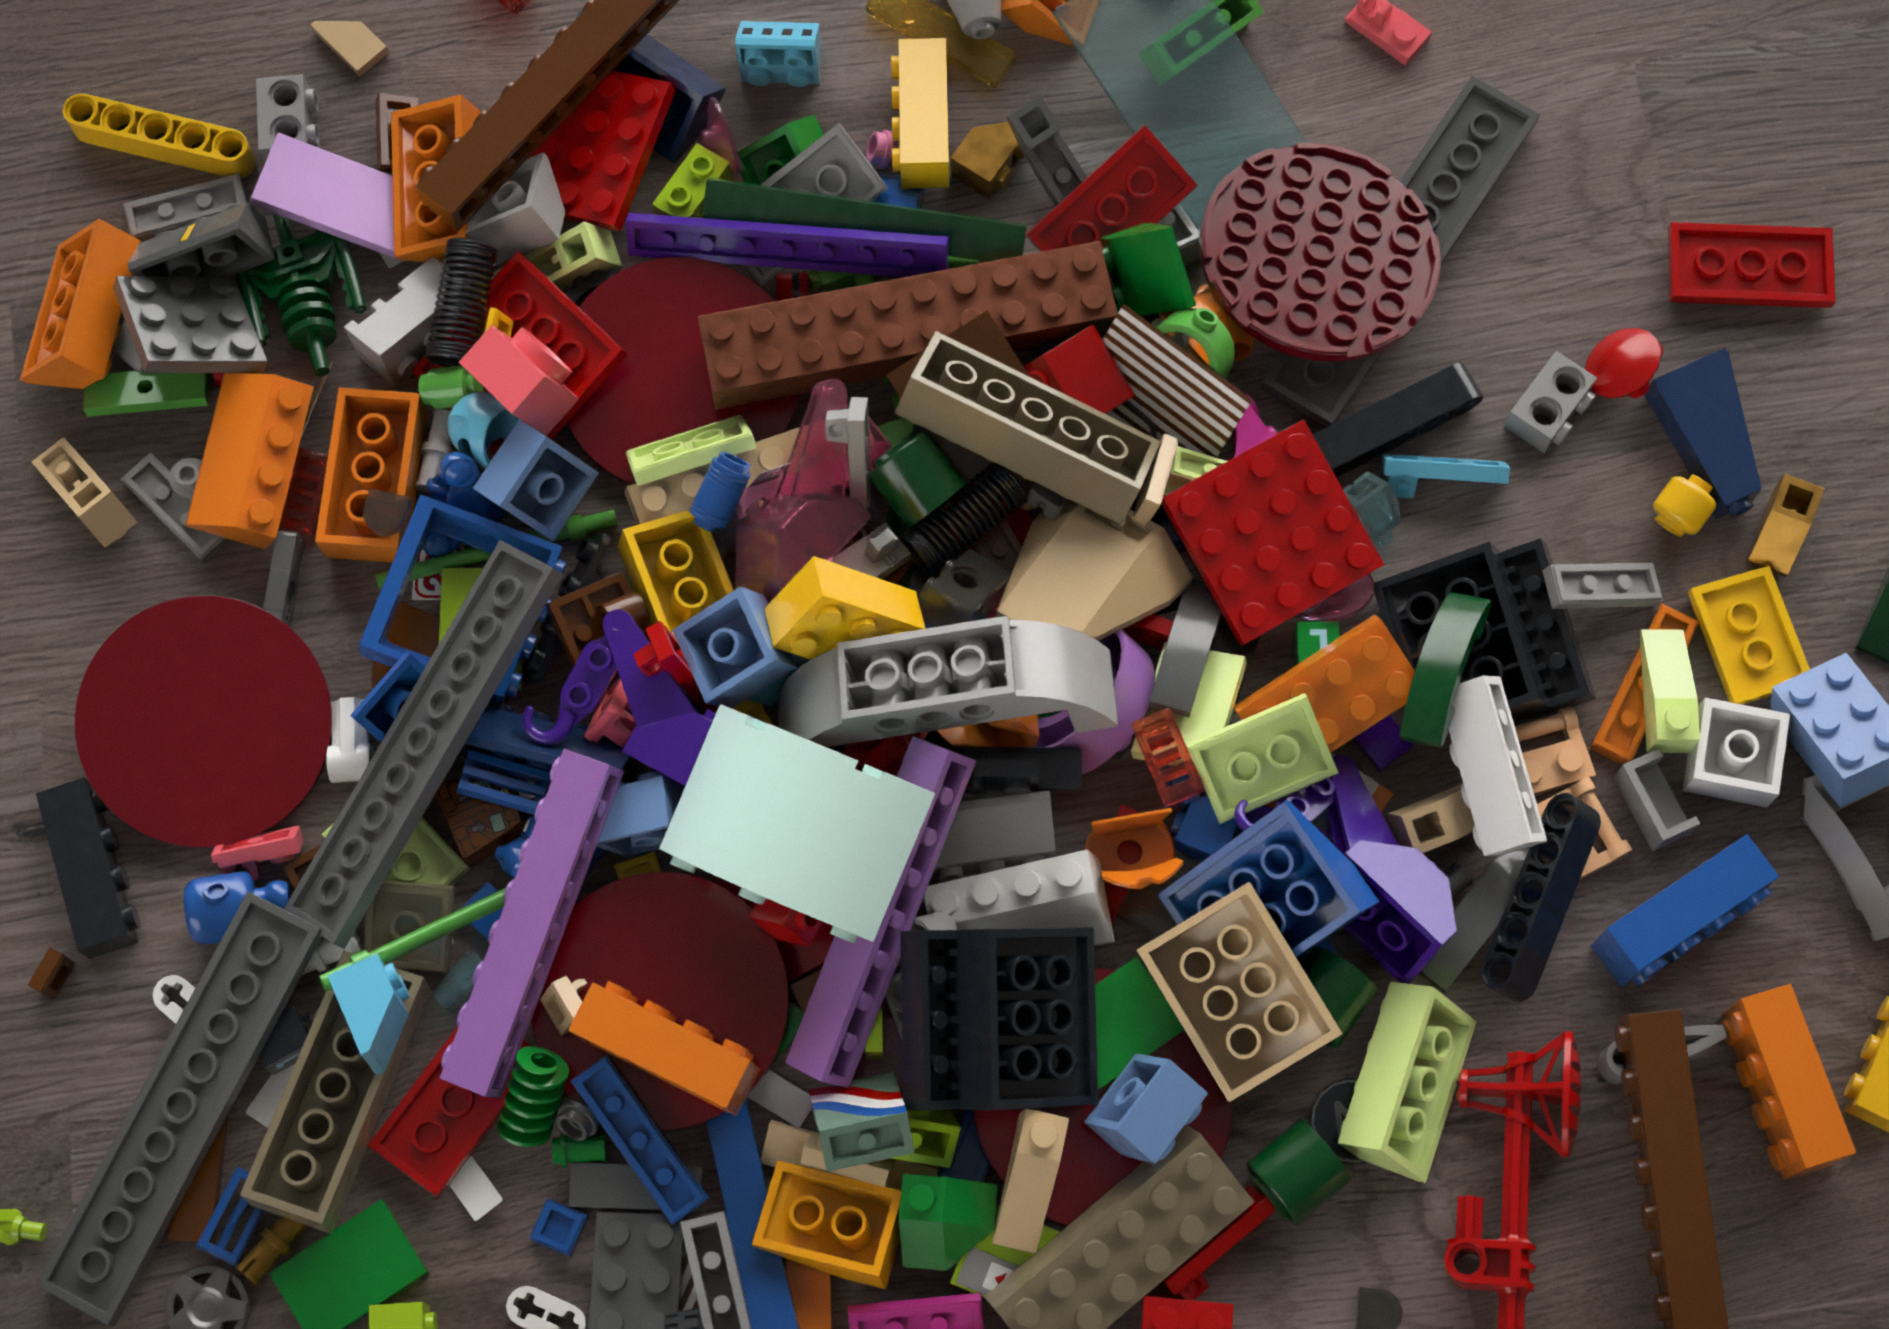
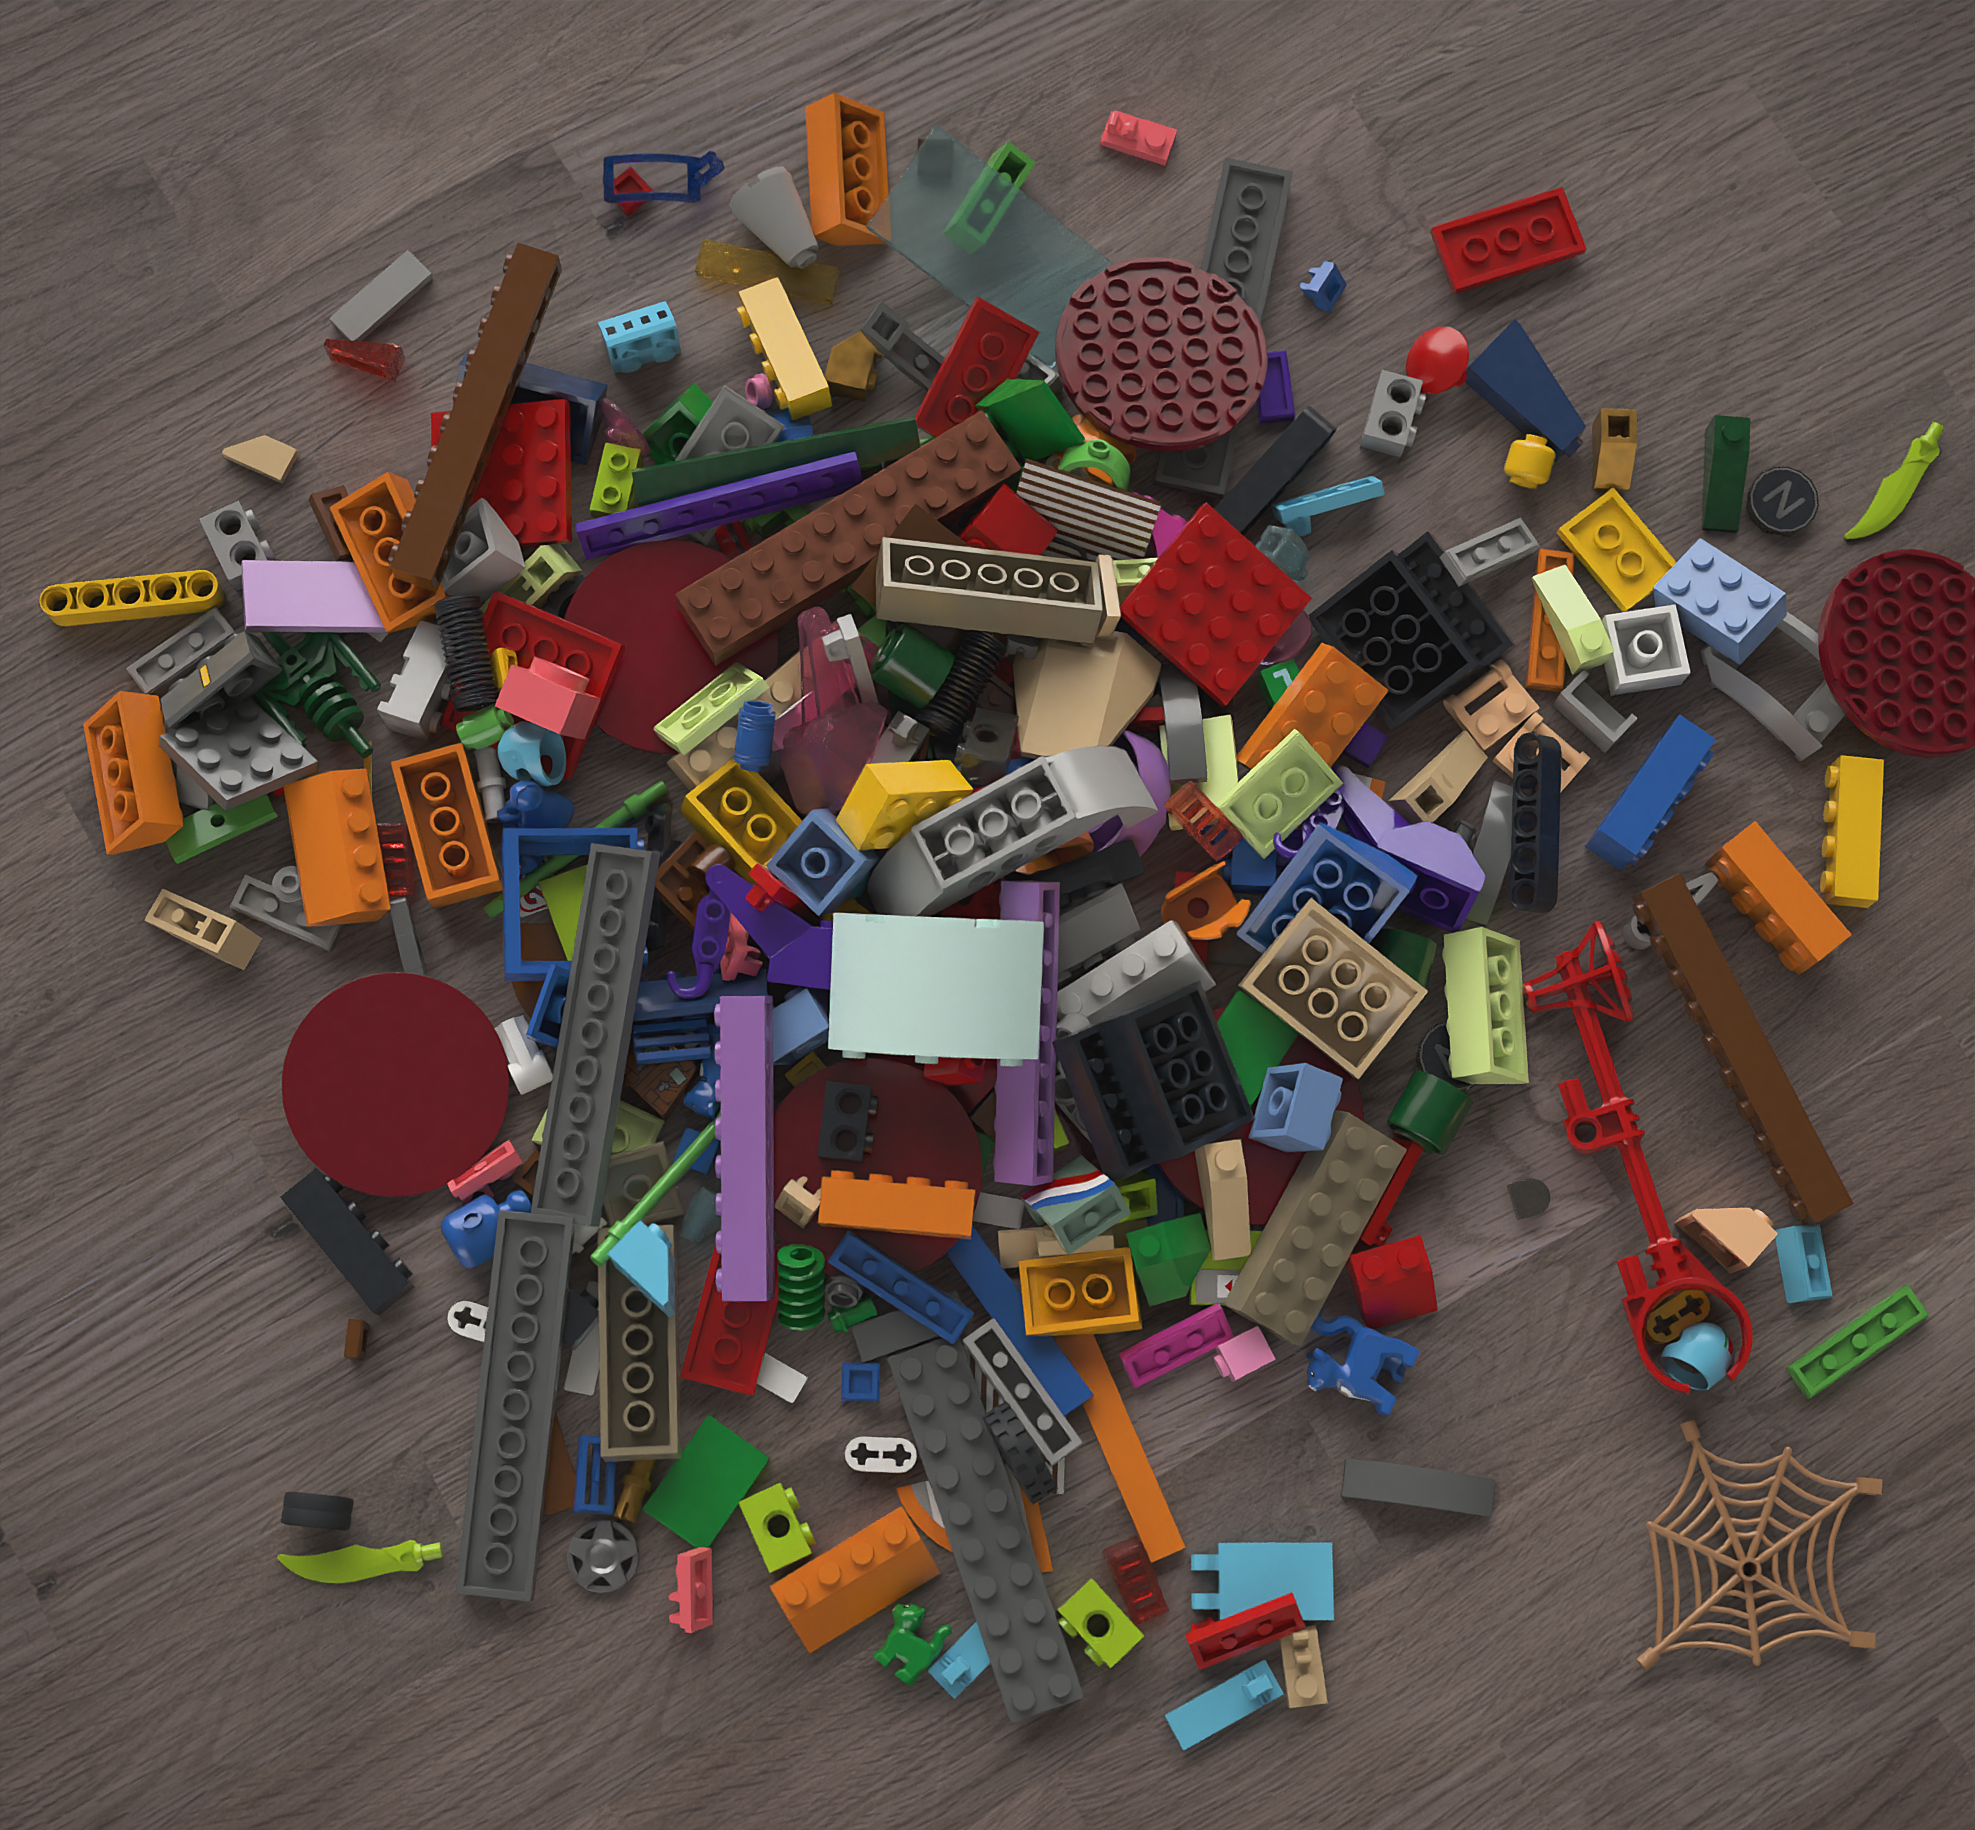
camera: 30 degrees left, 5 degrees up
(386, 512) = (478, 853): clear smoke tile -> none
(536, 480) = (592, 780): medium blue brick -> none
(639, 933) = (836, 1121): none -> black brick
(1433, 334) = (1276, 396): none -> dark purple tile
(1441, 667) = (1395, 668): dark green slope -> none
(1493, 769) = (1460, 733): white brick -> none
(1529, 244) = (1325, 286): none -> blue tile

